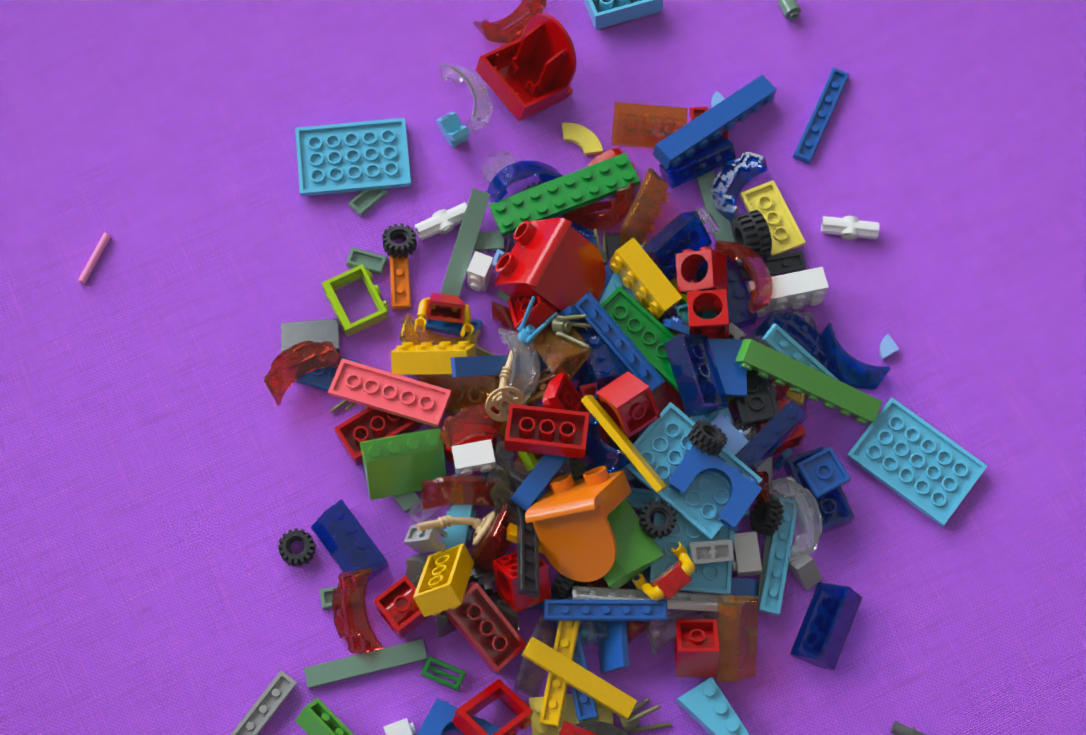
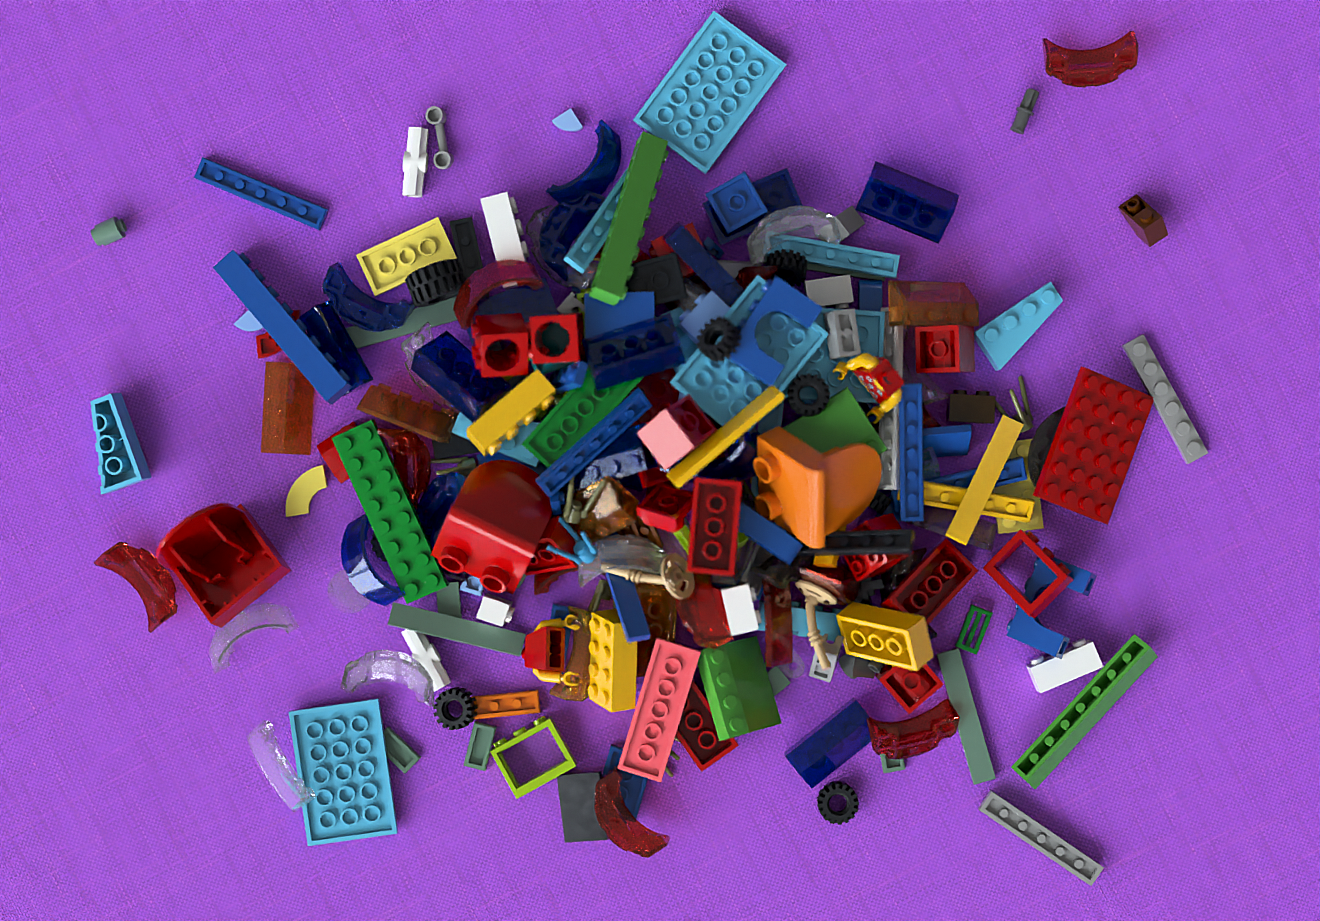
camera: 85 degrees left, 20 degrees up
(358, 105) = (277, 767): none -> clear windscreen
(437, 190) = (389, 667): none -> clear windscreen
(453, 129) = (301, 651): medium azure brick -> none
(642, 675) = (970, 408): none -> dark brown brick
(887, 246) = (437, 117): none -> light grey bar

